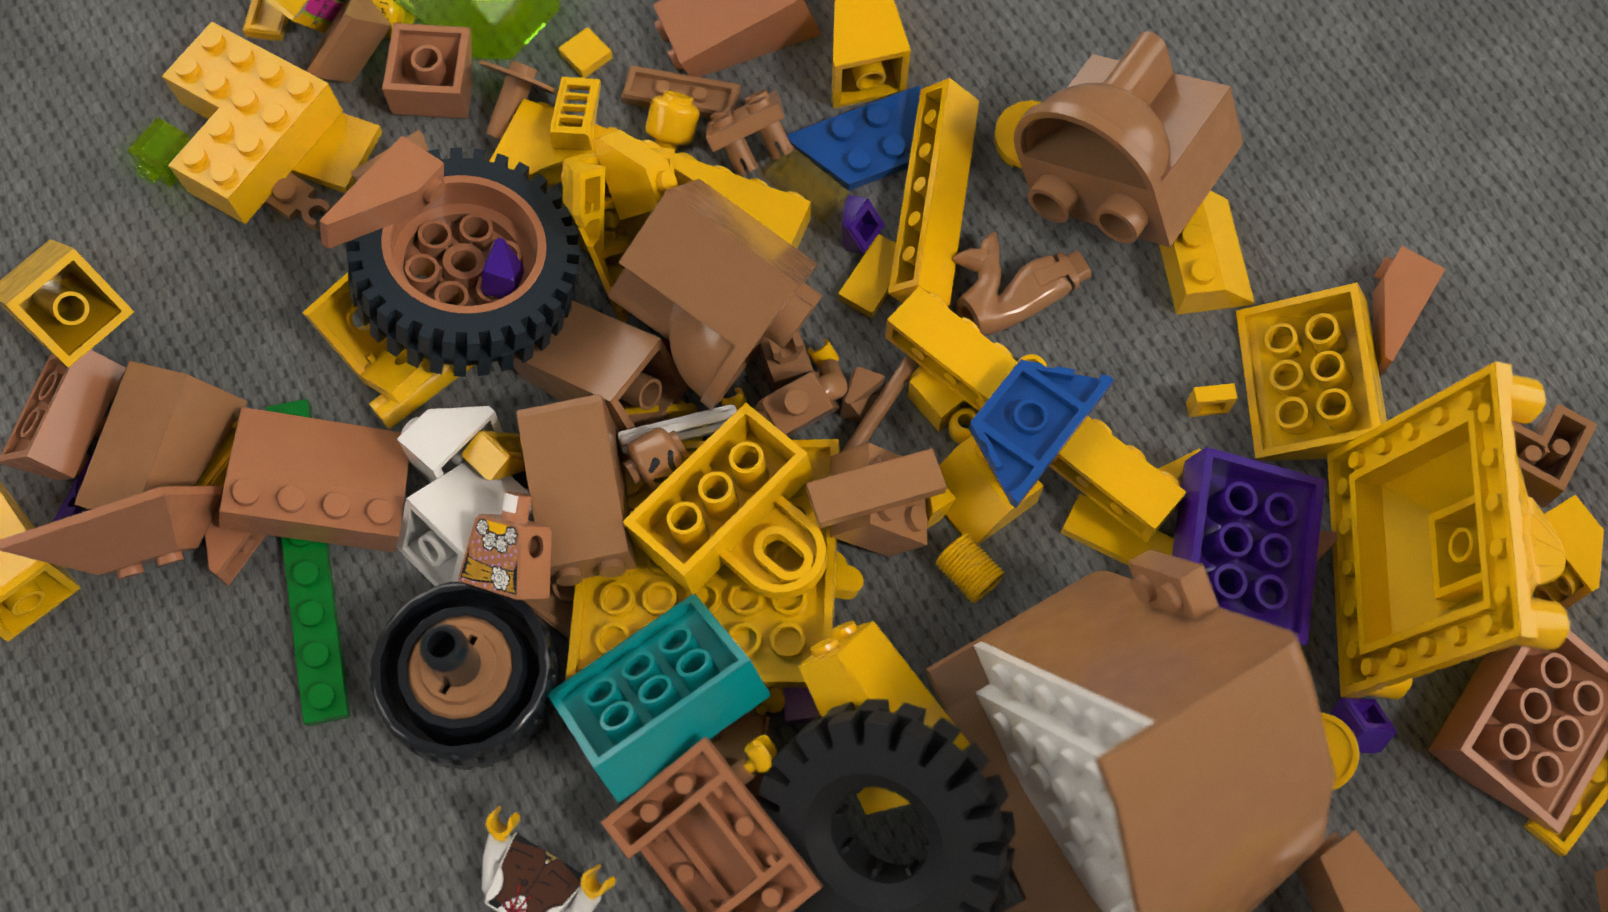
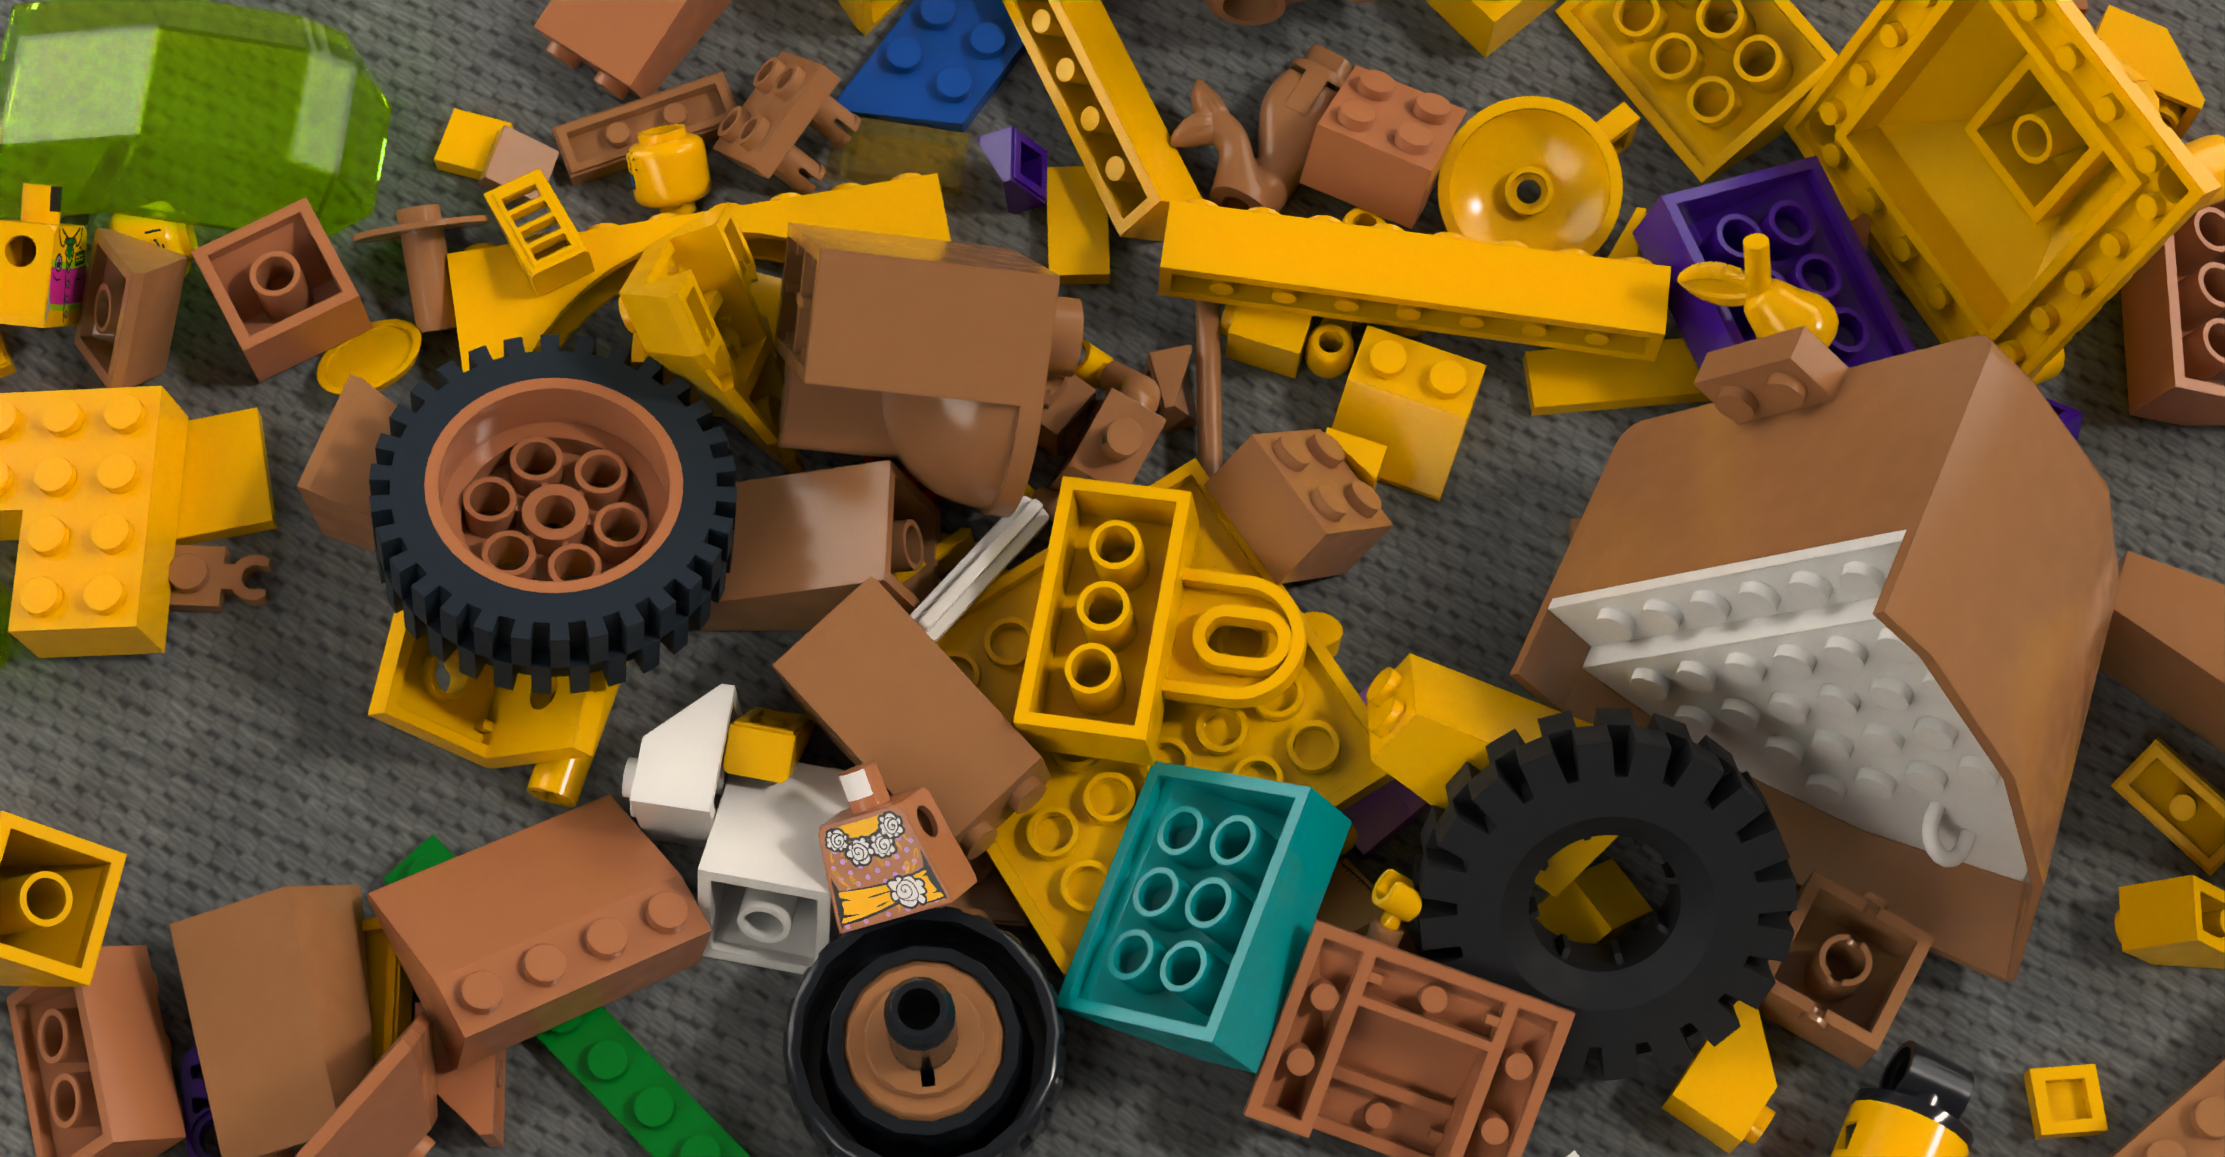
camera: 35 degrees left, 0 degrees up
(386, 194) = (417, 472): nougat slope -> none
(449, 133) = (376, 356): none -> yellow piece
(501, 271) = (624, 498): dark purple slope -> none
(600, 67) = (514, 156): none -> medium nougat tile
(633, 173) = (728, 256): yellow slope -> none
(654, 457) = (985, 621): medium nougat head -> none
(875, 488) = (1305, 484): medium nougat tile -> none
(891, 834) = (1595, 906): none -> yellow slope
(969, 568) = (1459, 524): yellow piece -> none
(1032, 422) = (1435, 289): blue wing -> none
(1073, 326) = (1381, 145): none -> nougat brick
(1167, 377) = (1540, 144): none -> yellow dish
(1229, 562) = (1767, 302): none -> yellow piece

